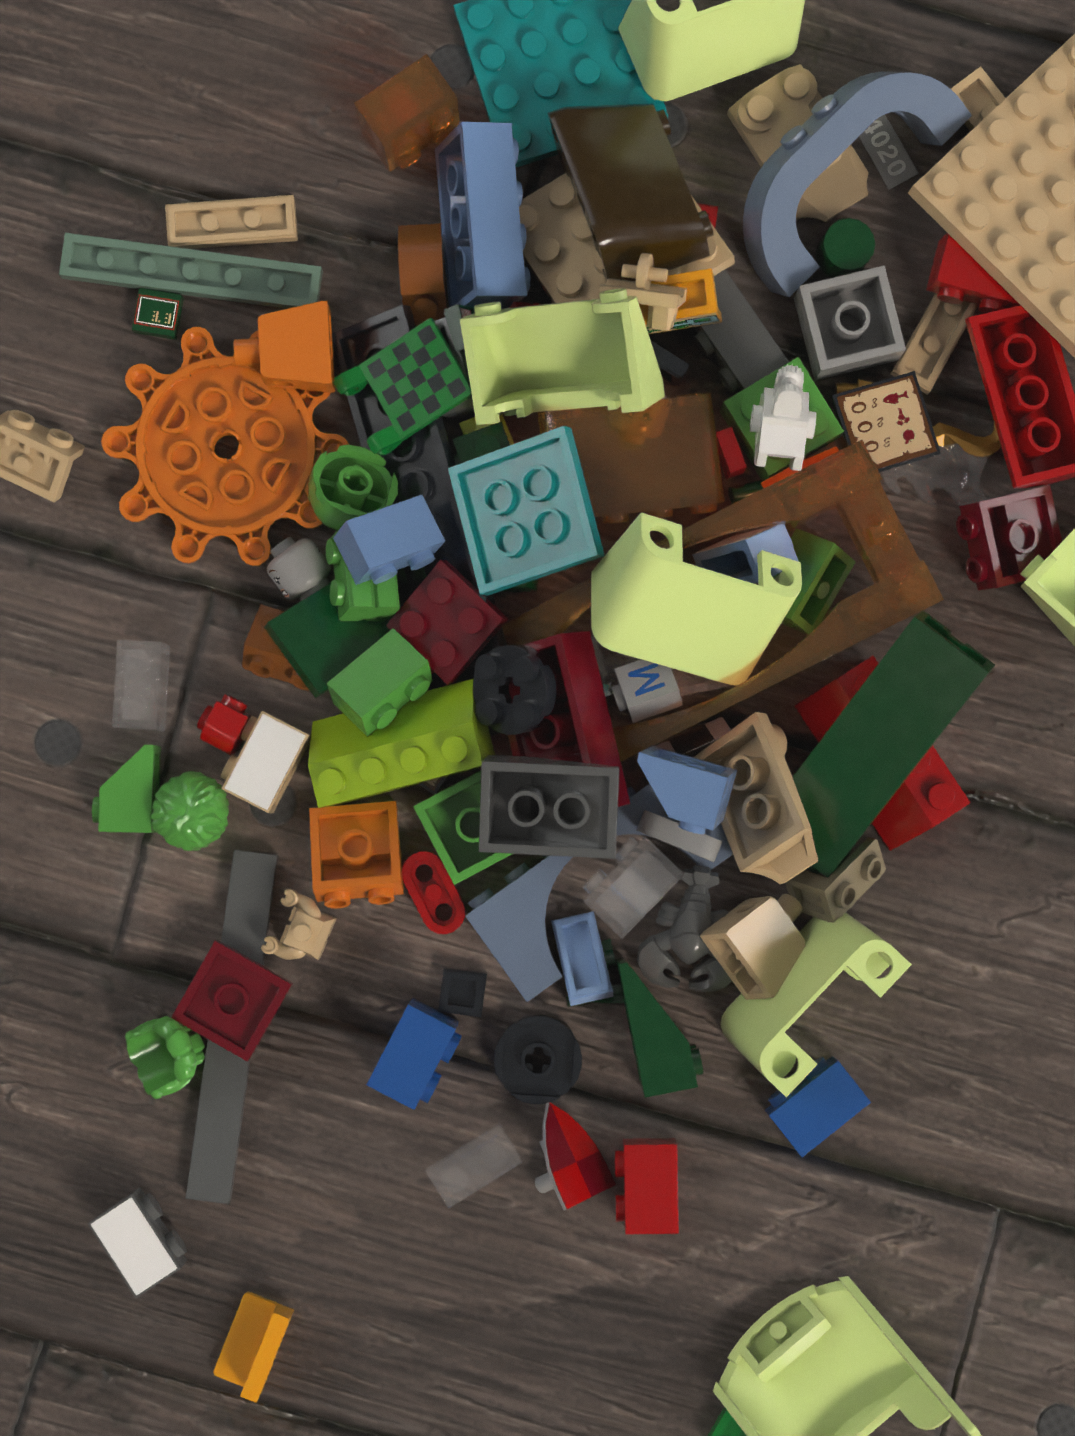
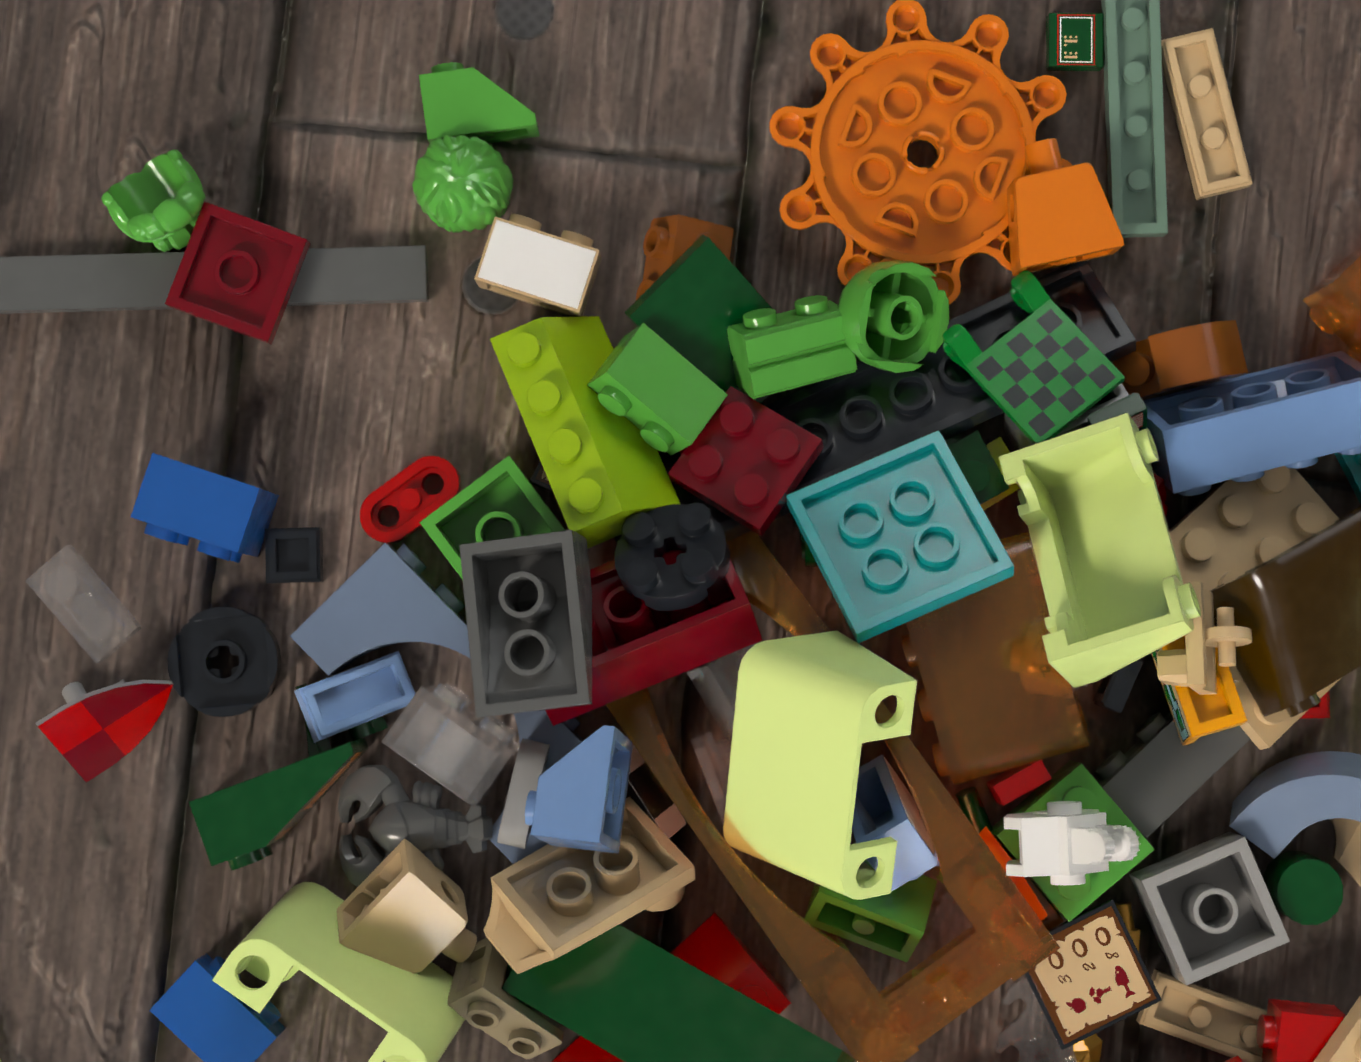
camera: 80 degrees right, 0 degrees up
(141, 685) = (607, 97): clear brick -> none
(224, 724) = (577, 207): red plate -> none
(298, 568) = (784, 266): light grey head -> none
(306, 932) = (333, 349): tan piece -> none
(356, 853) = (442, 395): orange plate -> none
(389, 540) = (834, 371): medium blue brick -> none
(645, 689) = (699, 722): light grey brick -> none
(649, 1186) = (88, 825): red brick -> none

